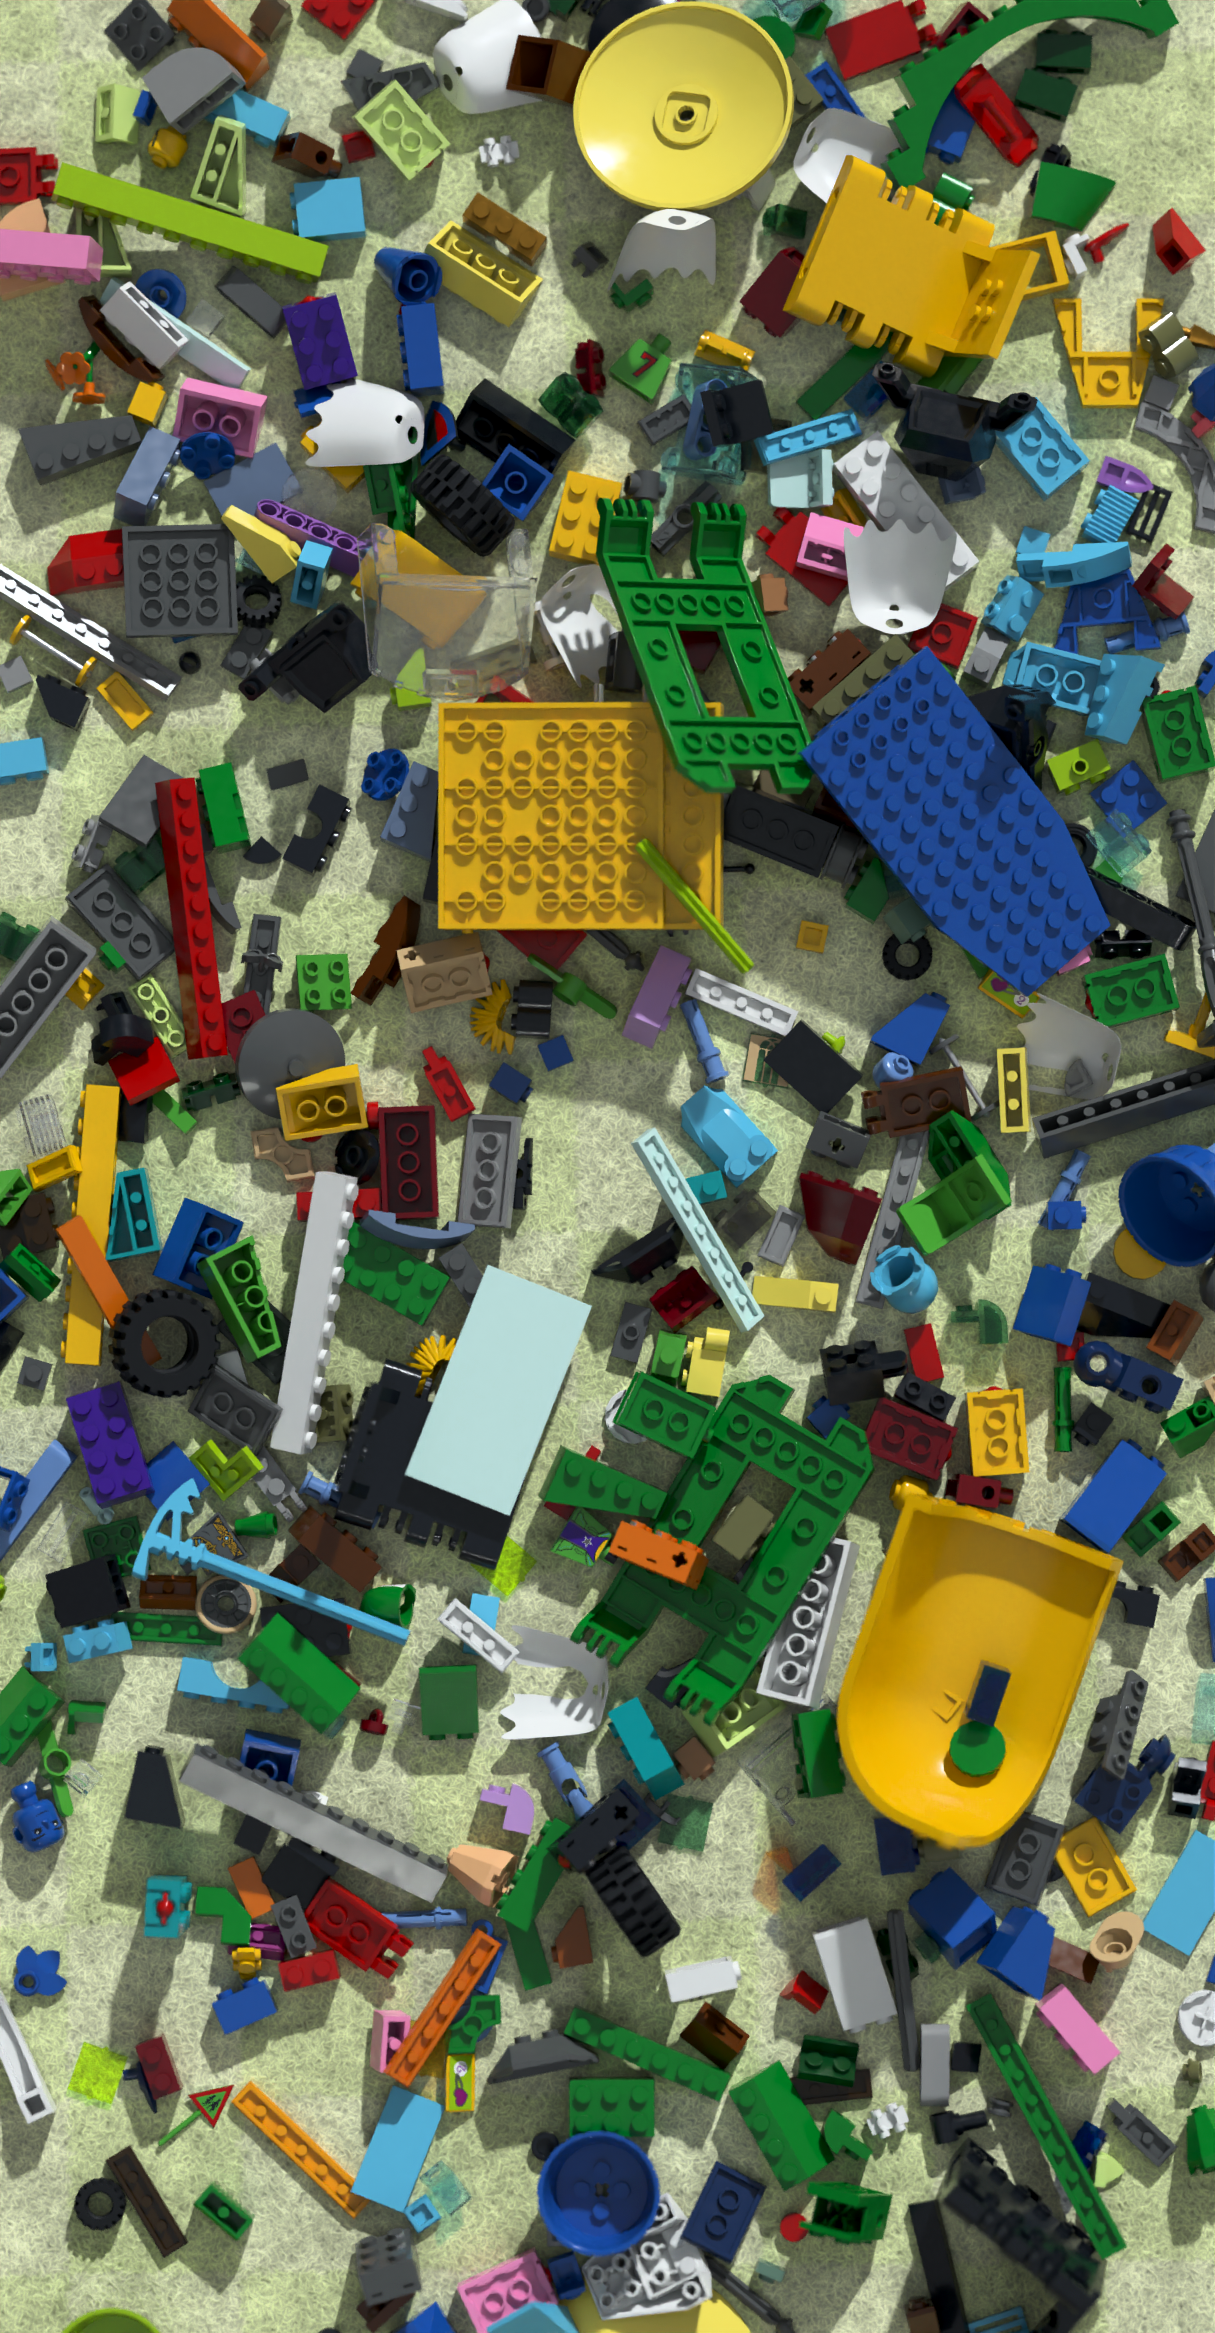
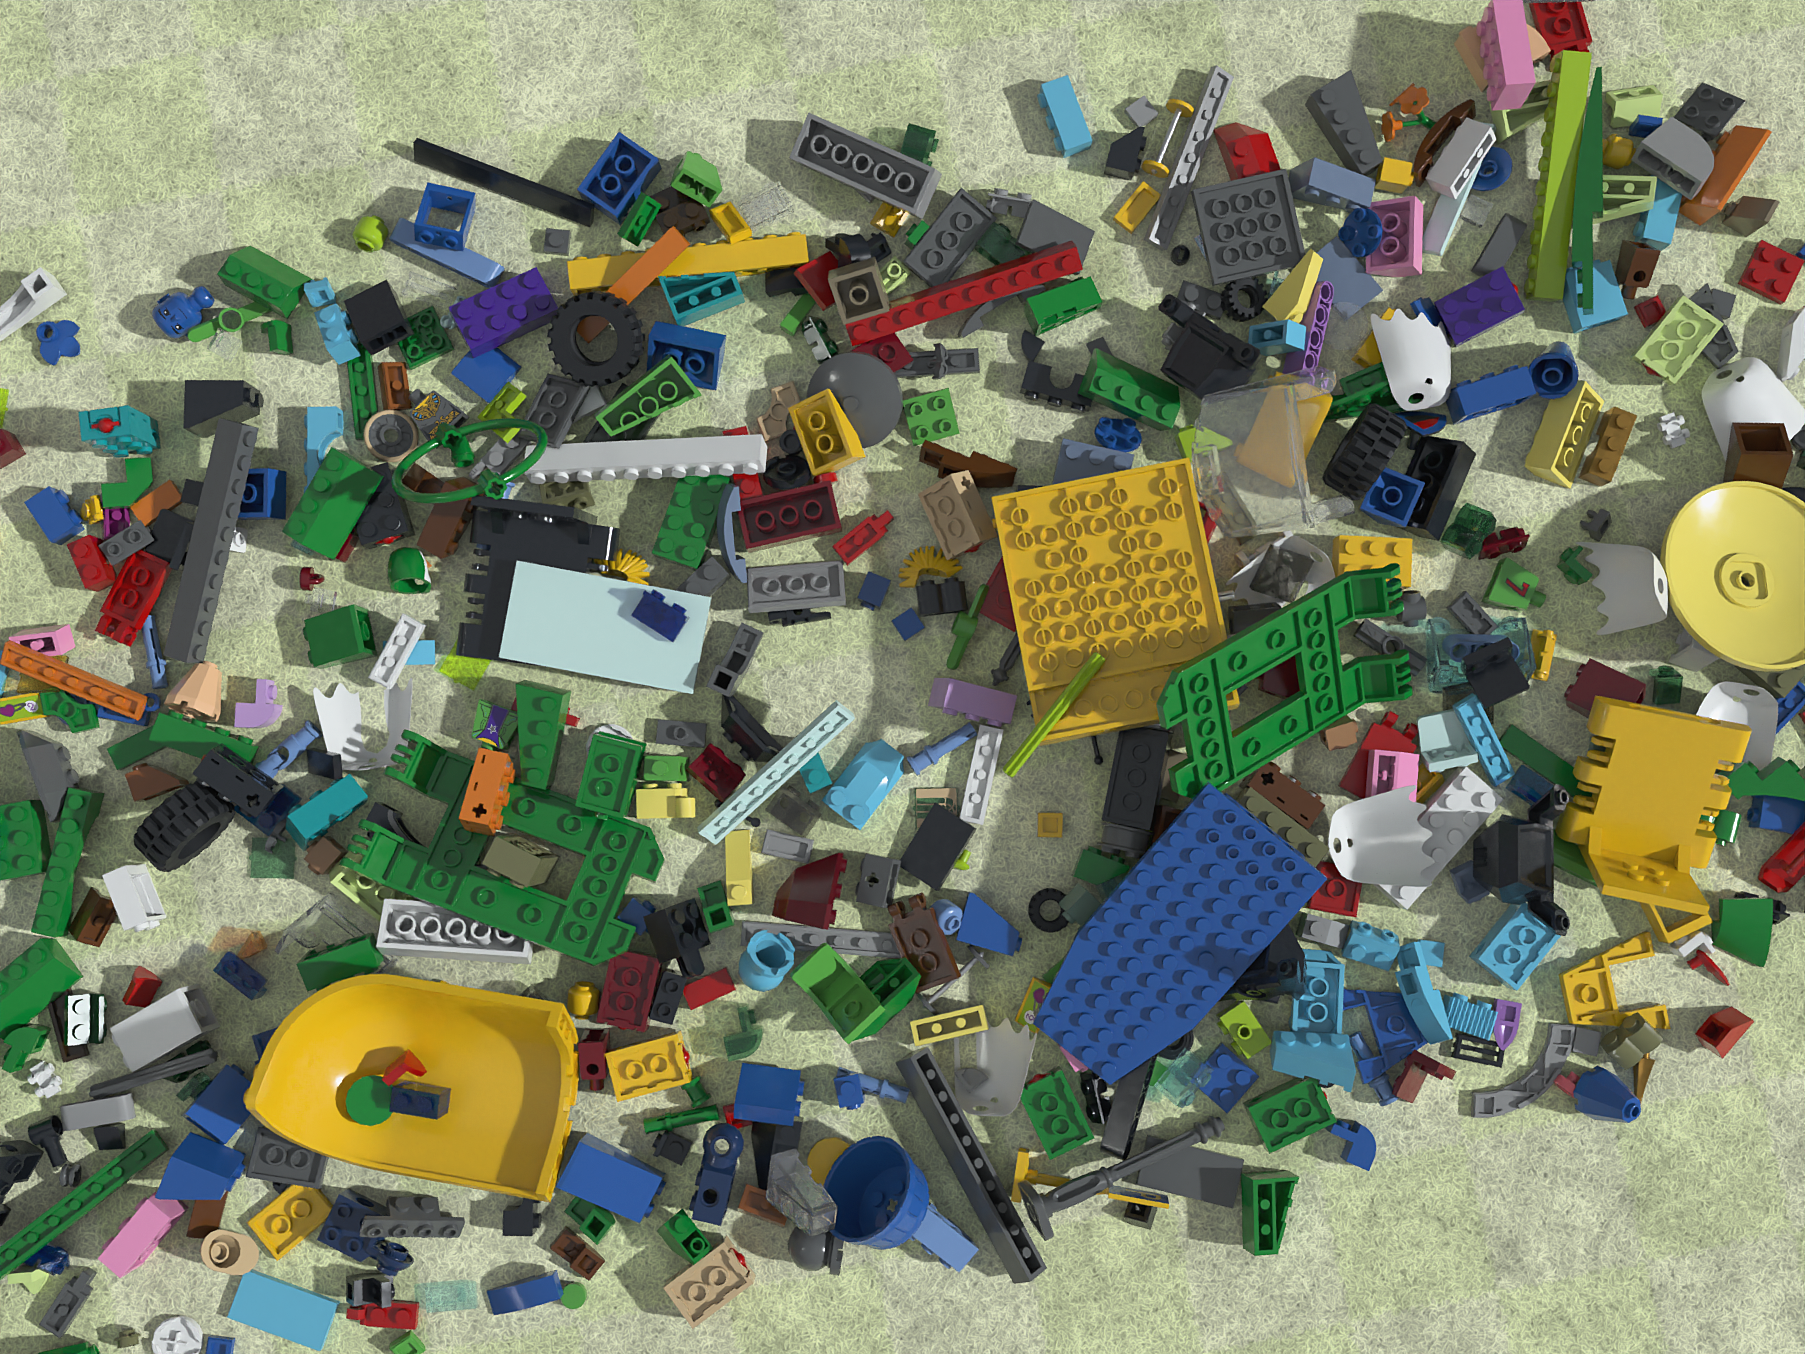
camera: 80 degrees right, 0 degrees up
(169, 1034) = (858, 290): none -> dark tan brick
(200, 1557) = (420, 403): medium azure piece -> none
(217, 195) = (1588, 194): none -> green slope
(322, 1146) = (790, 442): none -> black tile
(327, 1470) = (486, 478): none -> green piece
(339, 749) = (1131, 391): none -> green slope
(498, 1323) = (660, 615): none -> clear blue bracket
(561, 1252) = (734, 666): none -> dark grey arch
(579, 623) = (1281, 573): none -> clear smoke tile
(590, 1739) = (324, 763): none -> black tile
(834, 1327) = (715, 906): none -> green brick
(946, 1708) = (404, 1063): none -> red tile
(1035, 1387) = (696, 1091): none -> green bush
(1166, 1287) = (798, 1196): none -> clear wedge

